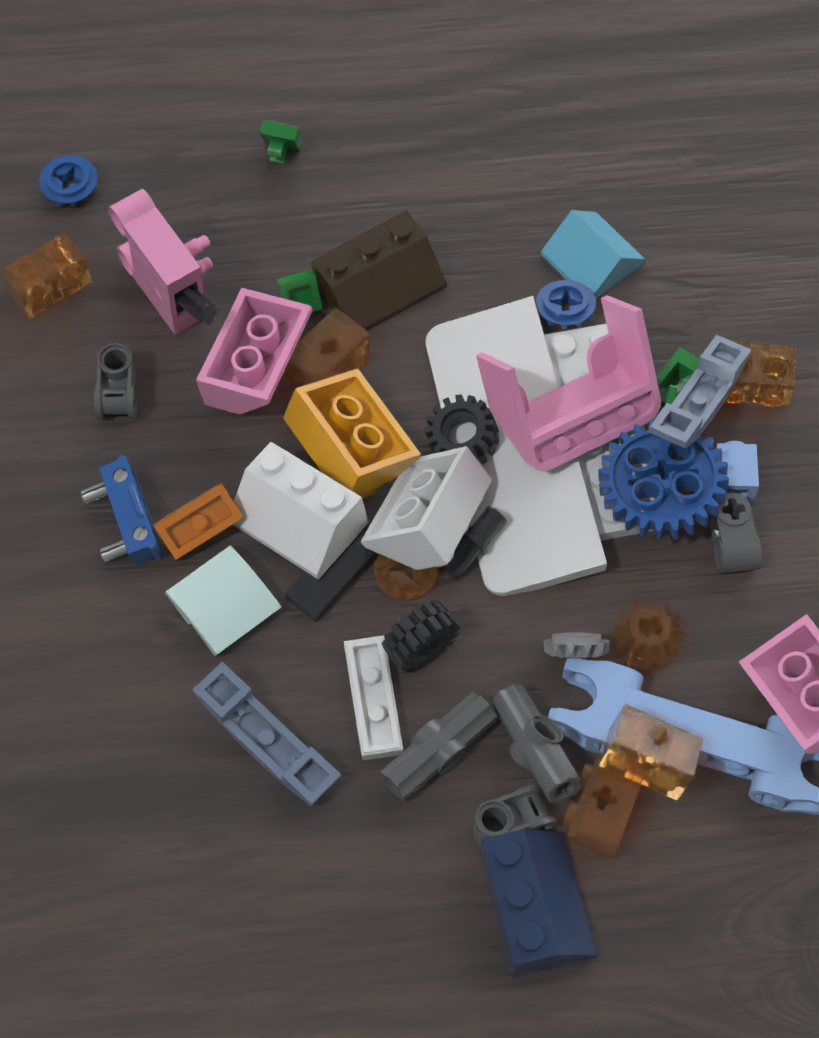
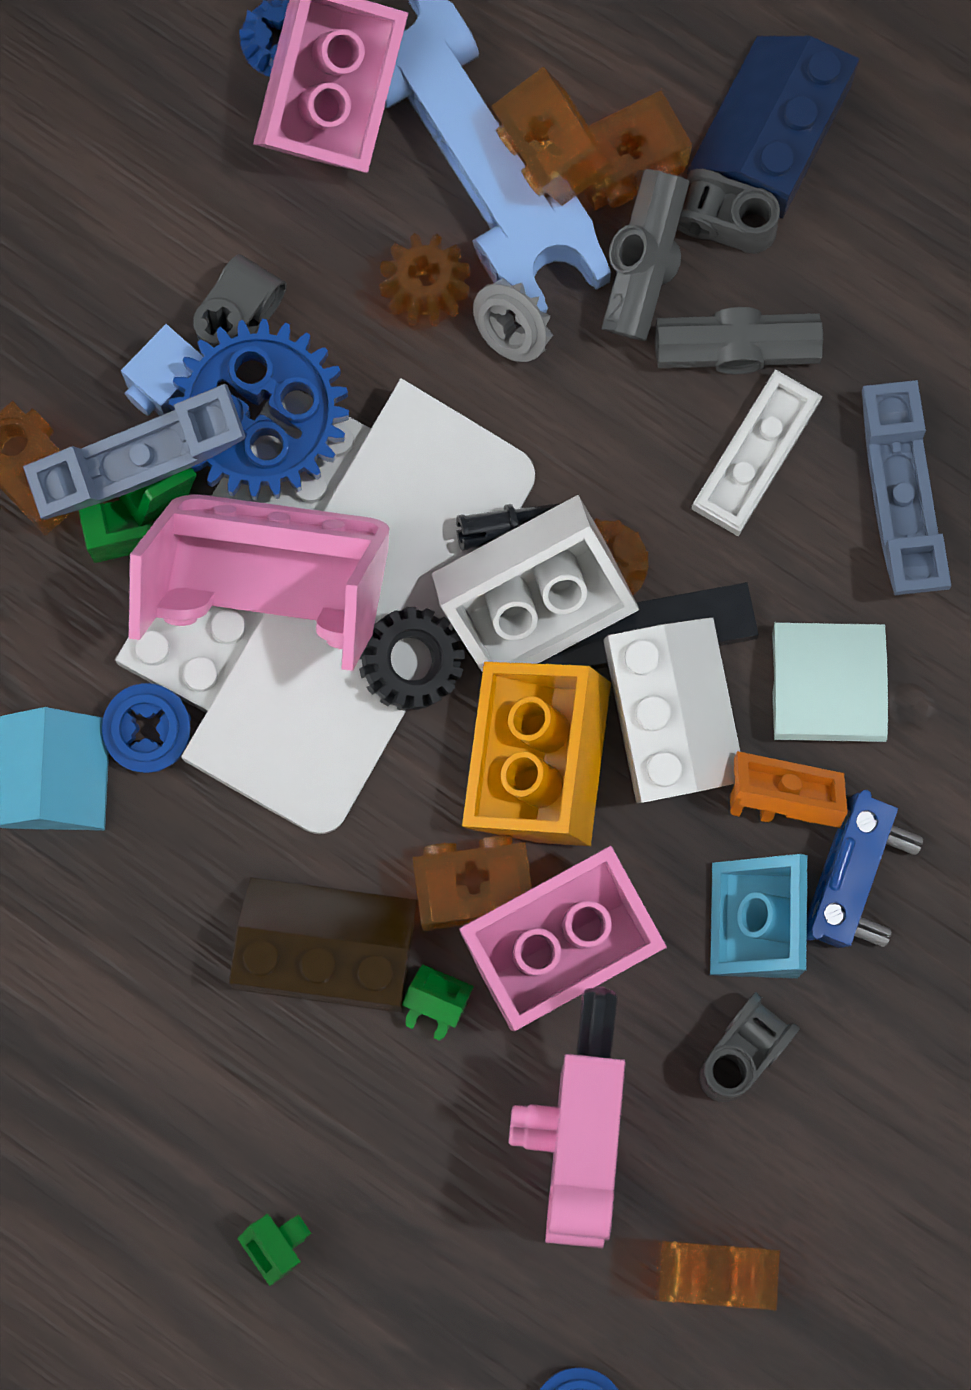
camera: 140 degrees left, 15 degrees up
(159, 452) = (759, 917): none -> medium azure slope
(421, 636) = (665, 453): black tyre -> none

